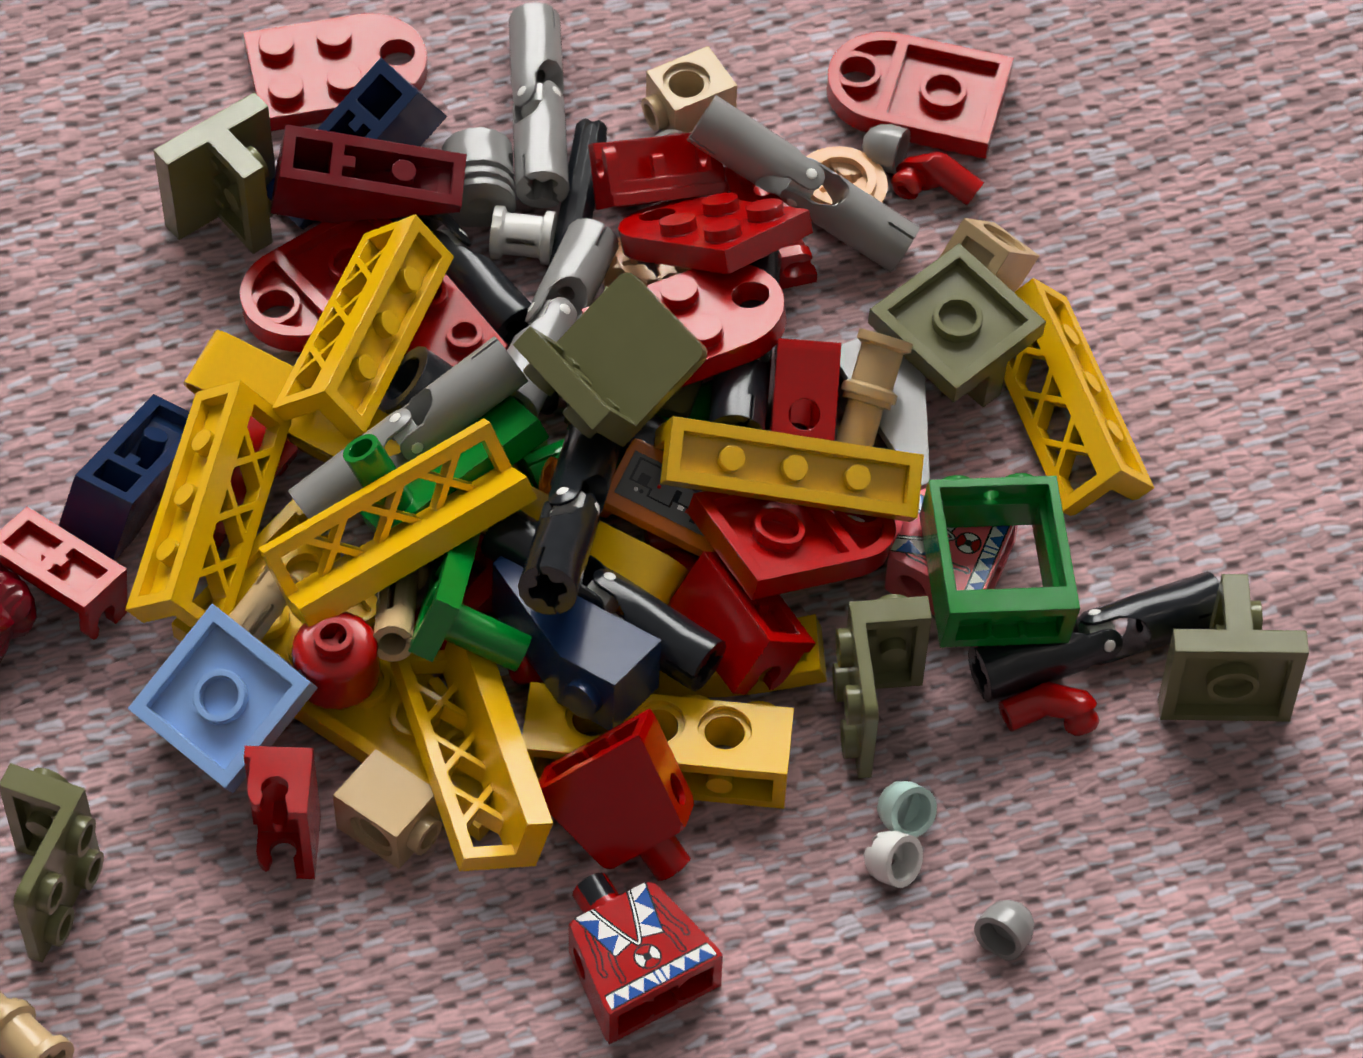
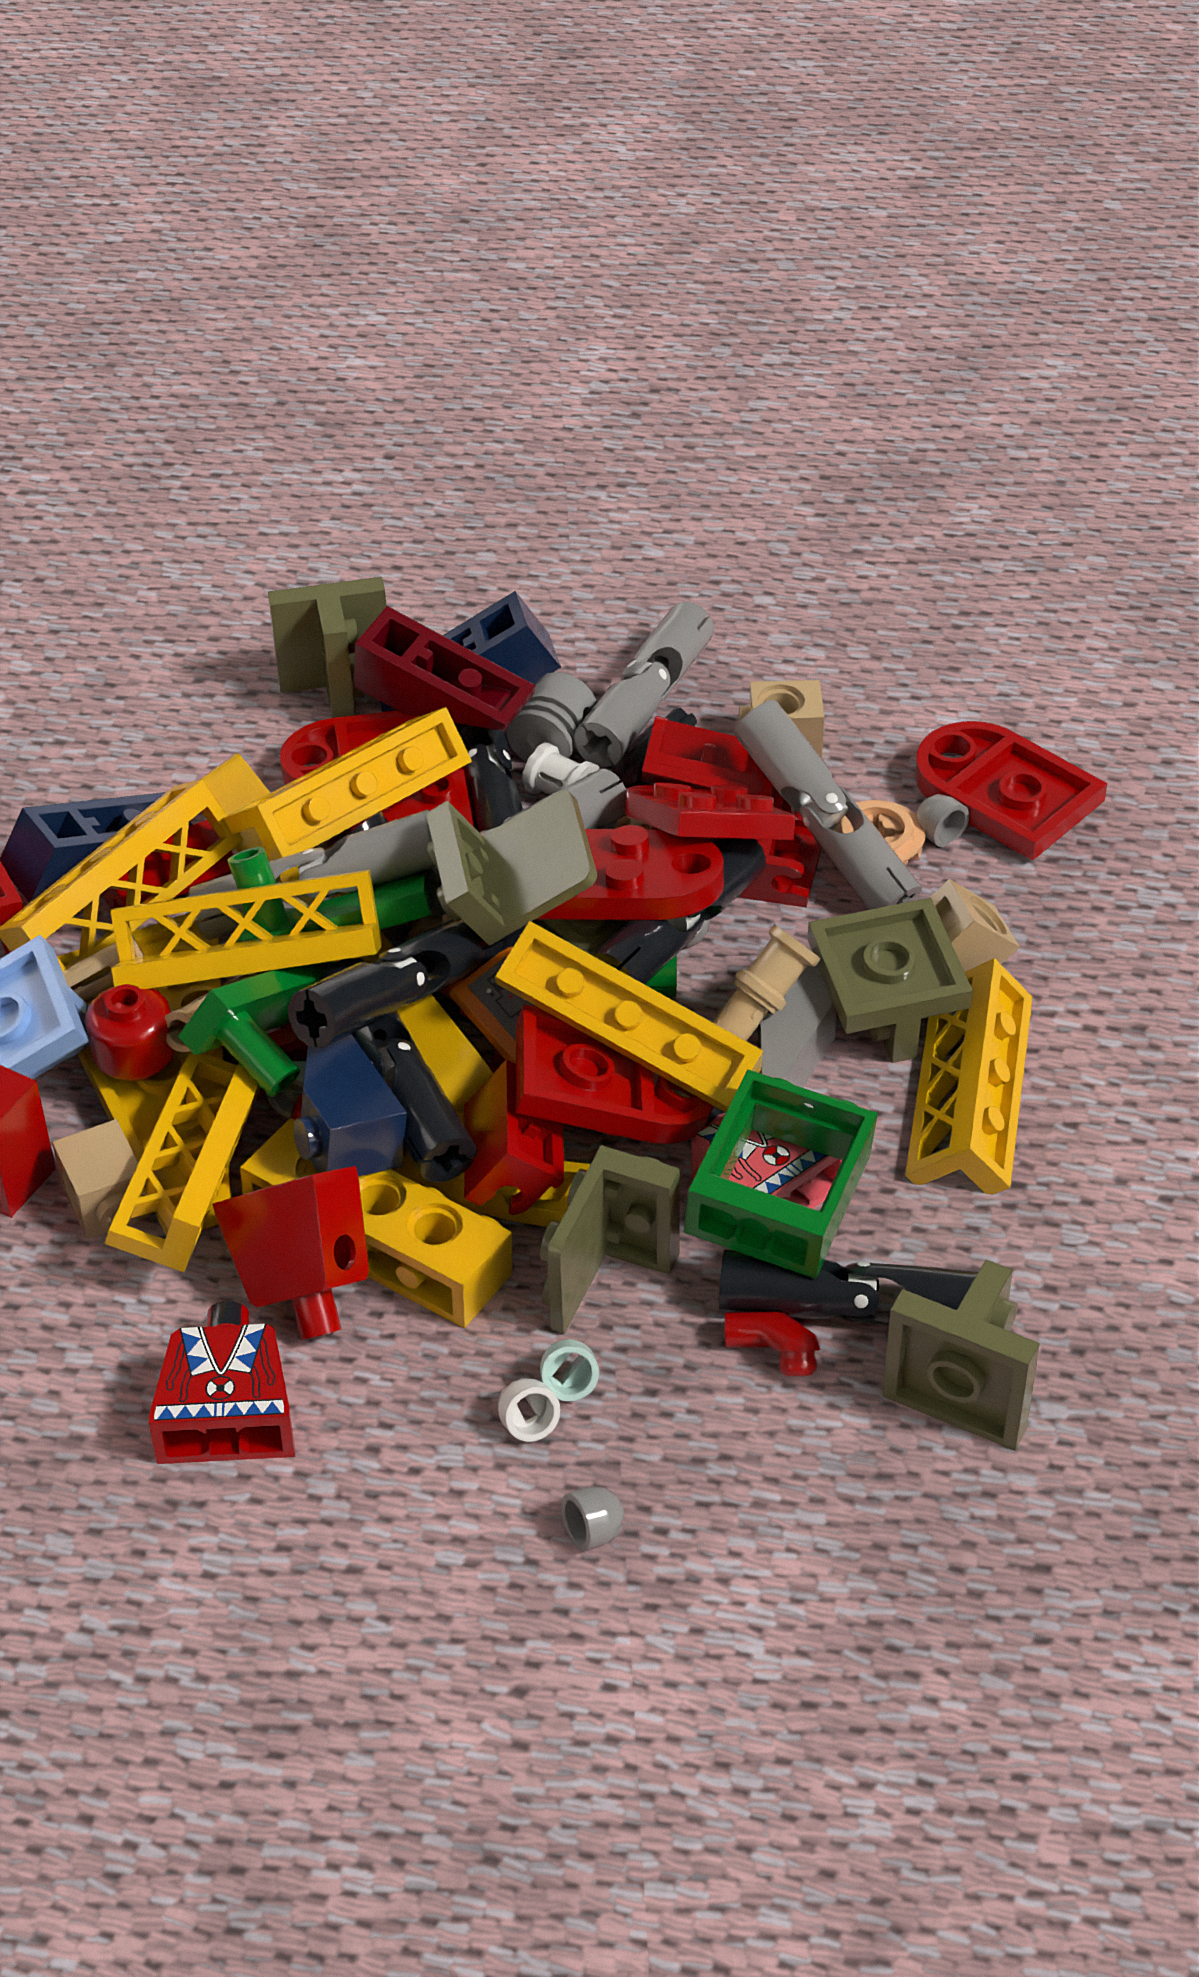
camera: 30 degrees right, 10 degrees down
(314, 65) = (467, 588): plate -> none
(804, 388) = (703, 963): red torso -> none
(932, 172) = (971, 852): red arm -> none

